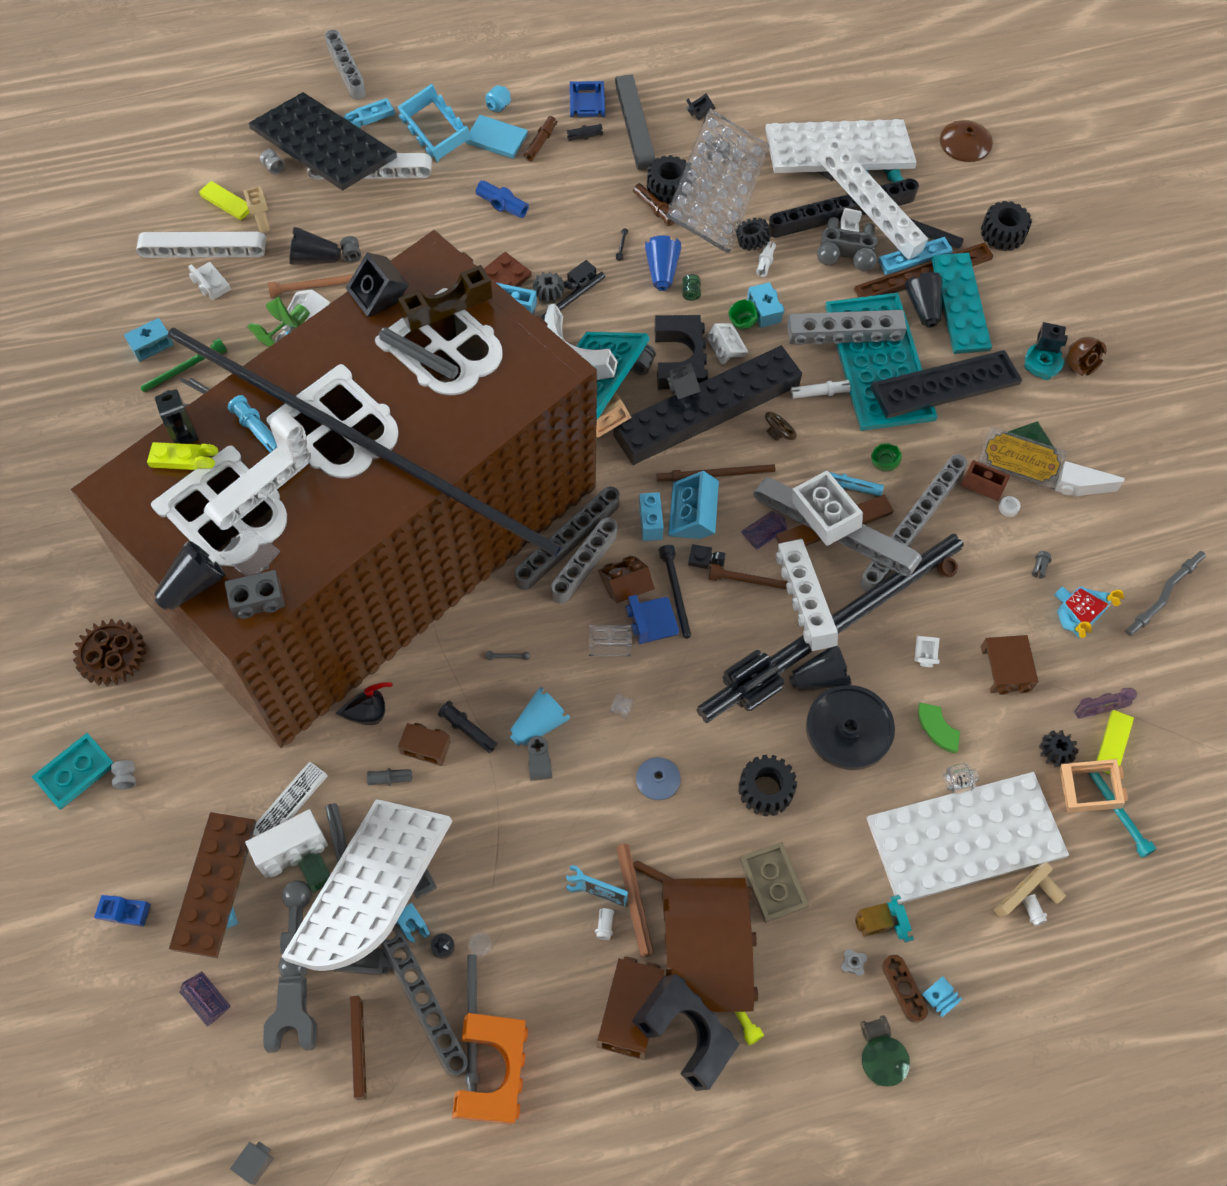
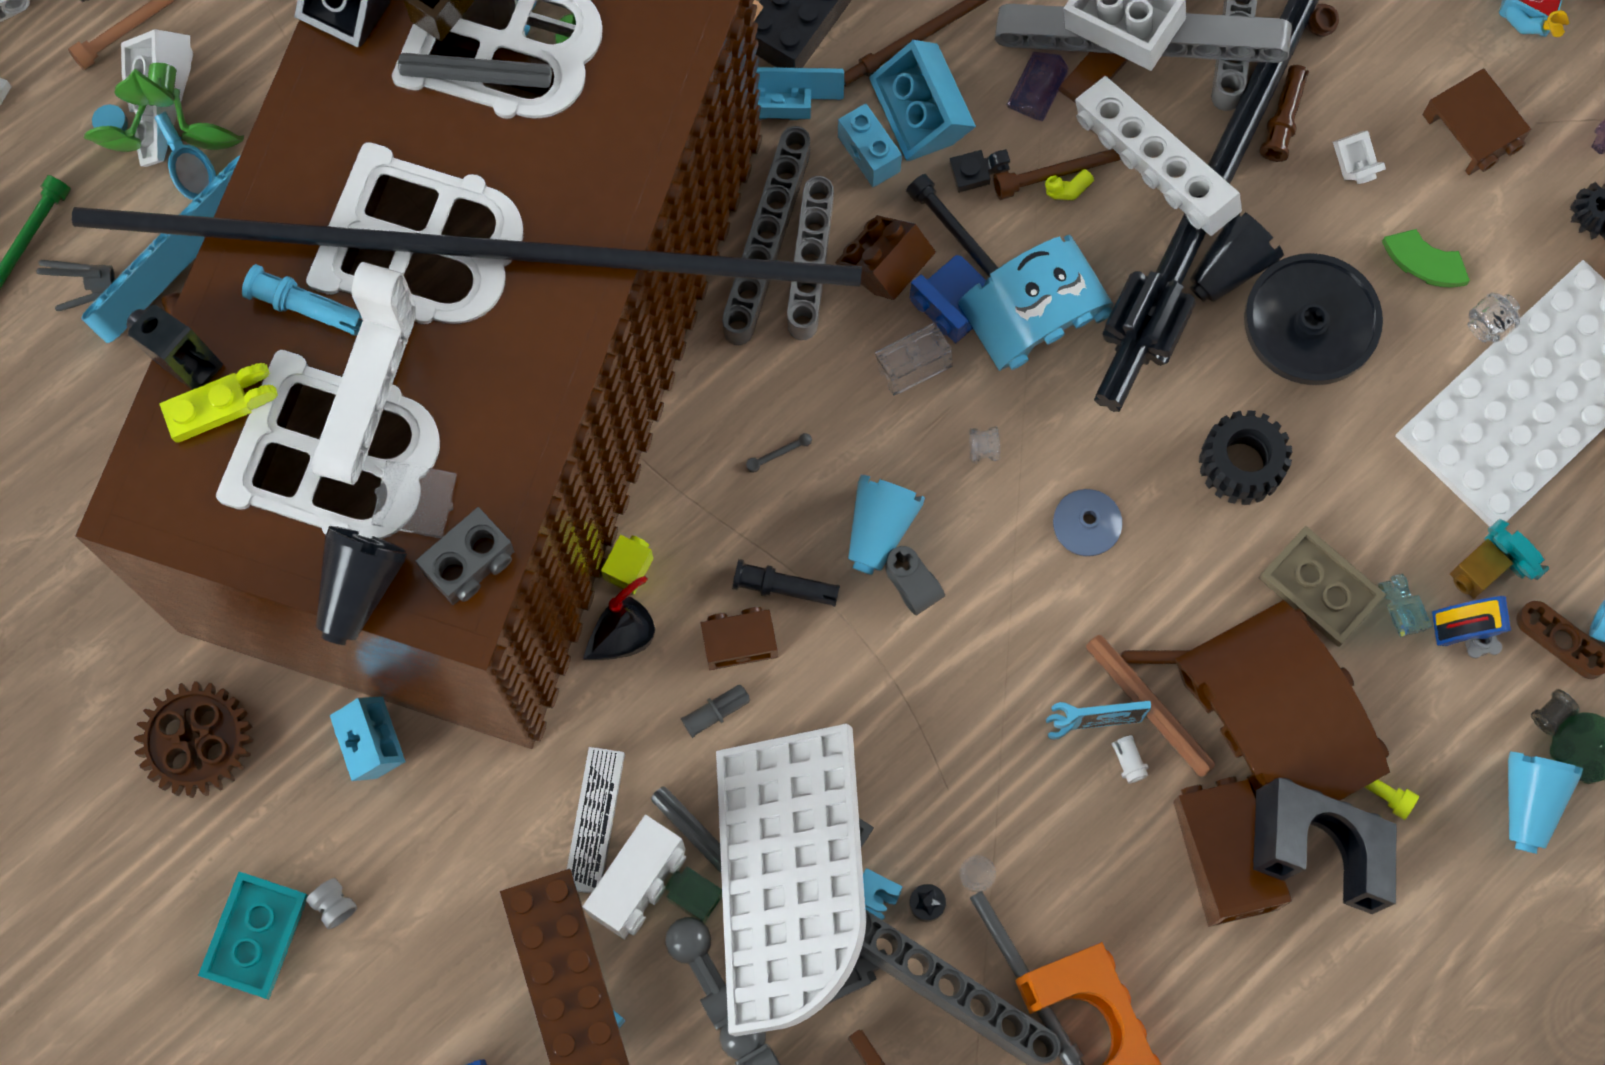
camera: 25 degrees left, 10 degrees up
(195, 696) = (367, 738): none -> medium azure brick
(268, 324) = (110, 116): none -> medium azure tile
(390, 671) = (627, 561): none -> neon yellow brick
(622, 468) = (789, 91): none -> medium azure bracket
(695, 638) = (1035, 301): none -> medium azure cylinder
(750, 592) = (1071, 189): none -> neon yellow arm
(816, 922) = (1406, 610): none -> clear light blue plate
(835, 1074) = (1537, 798): none -> medium azure cone
(852, 946) = (1471, 620): none -> slope
(892, 613) = (1282, 125): none -> reddish brown pin

